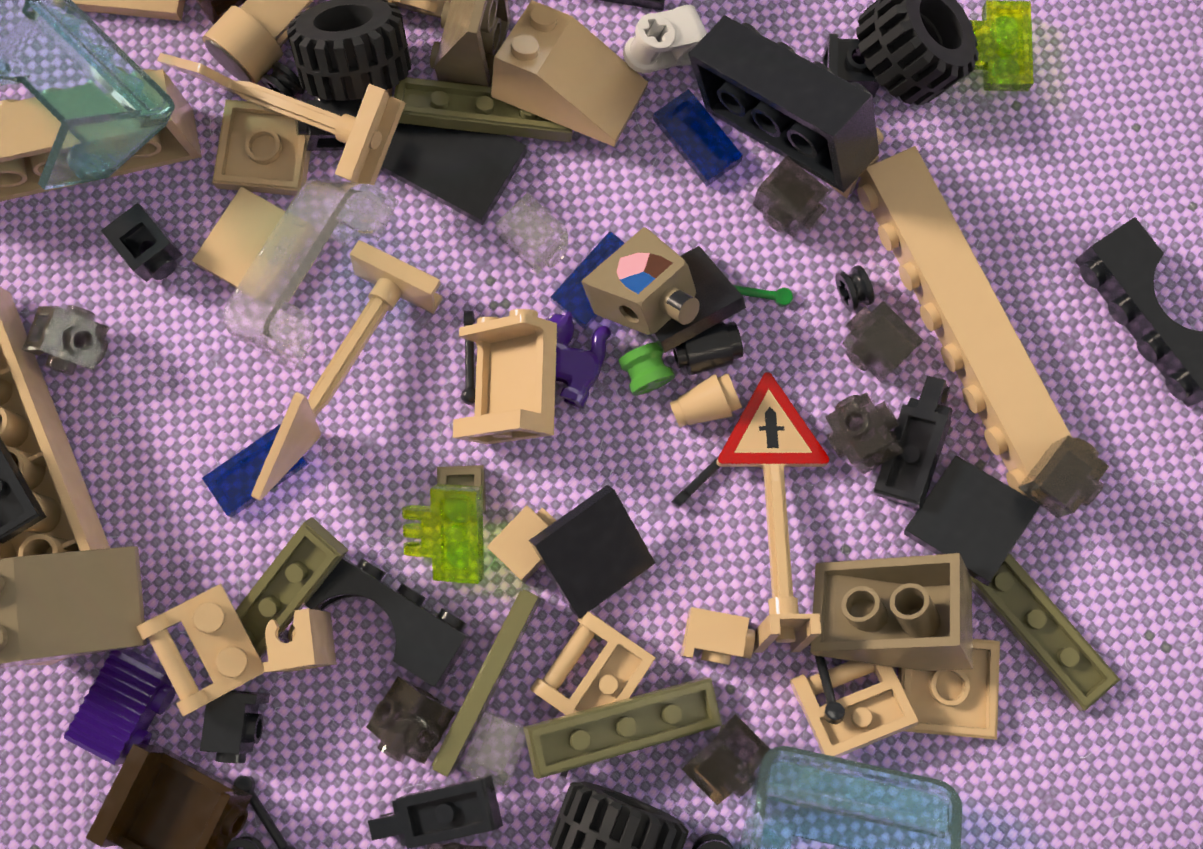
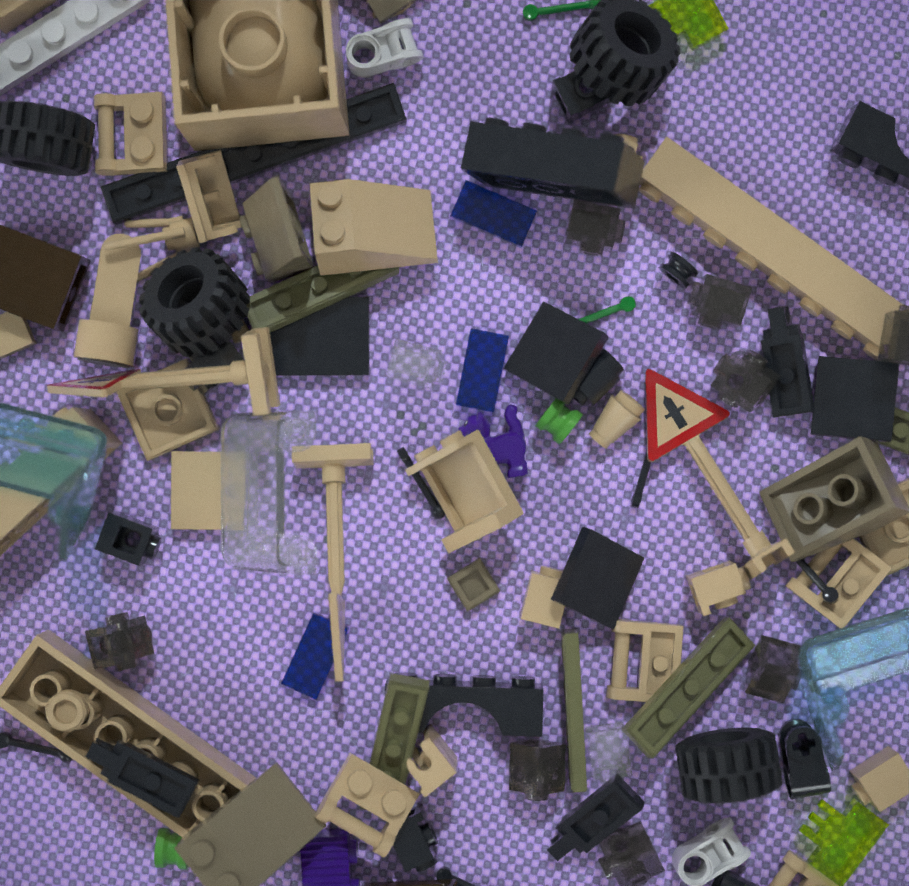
camera: 30 degrees left, 10 degrees up
(283, 80) = (152, 353): black bush -> none
(449, 533) = (485, 622): clear neon green hinge -> none
(643, 285) = (525, 363): dark tan torso -> none
(664, 39) = (431, 149): white piece -> none

